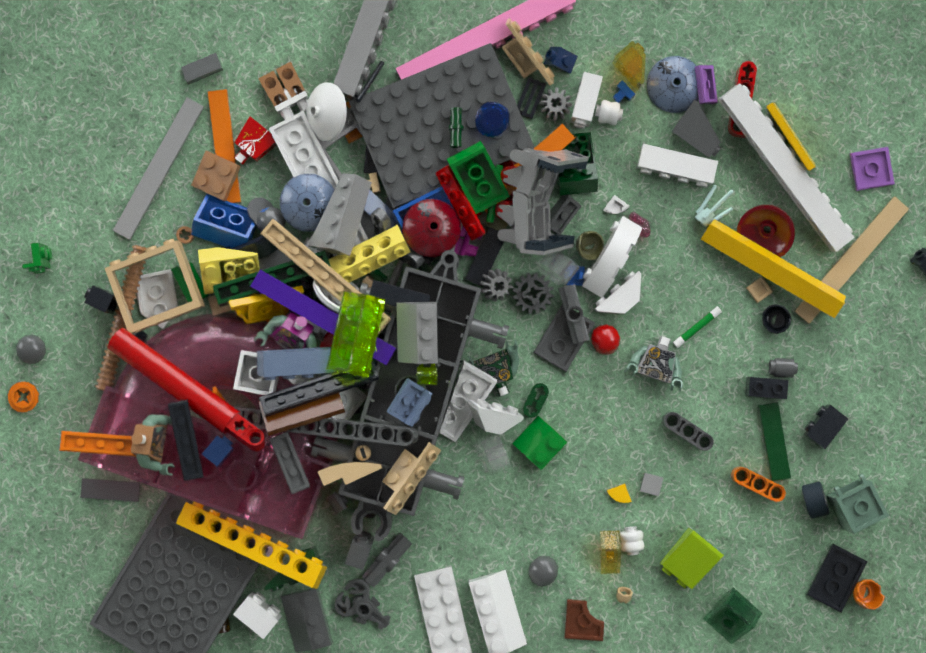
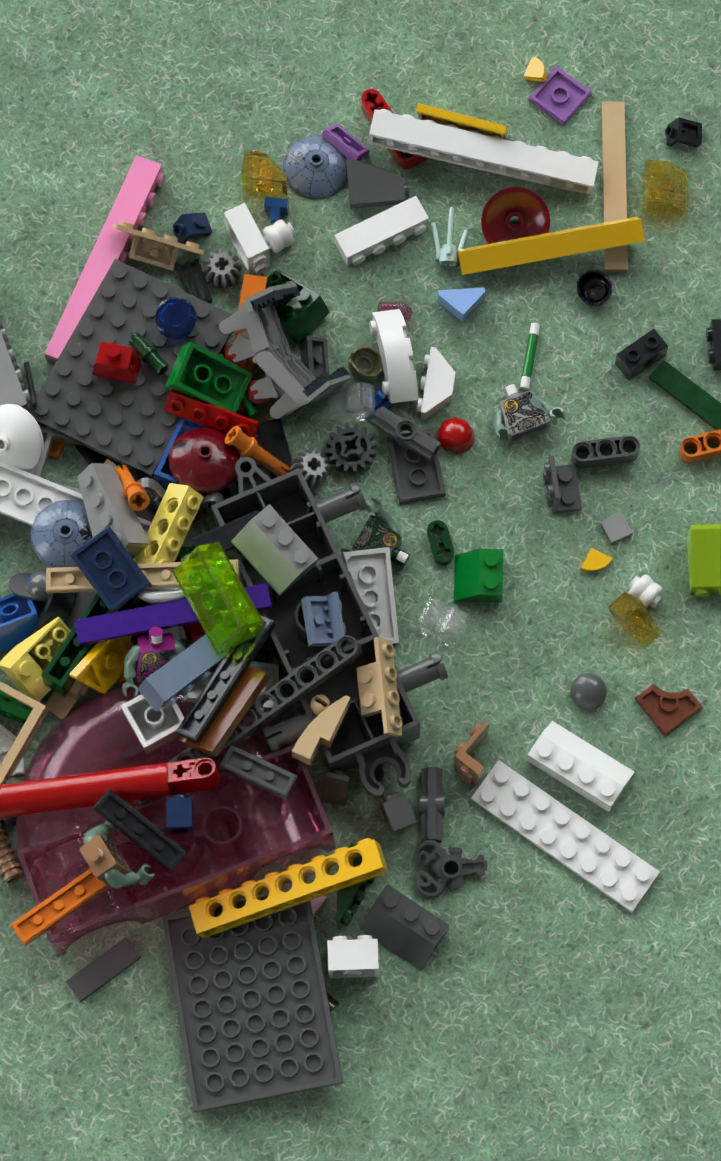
camera: 40 degrees left, 15 degrees down
(308, 256) = (110, 569): none -> dark blue tile
(367, 213) = (133, 490): none -> orange pin
(425, 559) = (469, 768): none -> medium nougat bracket
(427, 375) = (318, 581): clear neon green tile -> none
(430, 118) = (115, 363): none -> red torso
(466, 243) = (249, 447): none -> orange pin
(494, 417) = (413, 584): white slope -> none
(615, 206) = (358, 312): white tile -> none
(624, 598) = (683, 648): tan hinge -> none
(641, 431) = (562, 487): none -> dark grey bracket
(685, 256) = (461, 301): none -> light blue slope
(759, 289) = (556, 278): tan tile -> none
(783, 367) = (639, 325): dark grey brick -> none
(871, 139) = (536, 71): none -> yellow tile
(881, 289) = (664, 188): none -> clear yellow slope

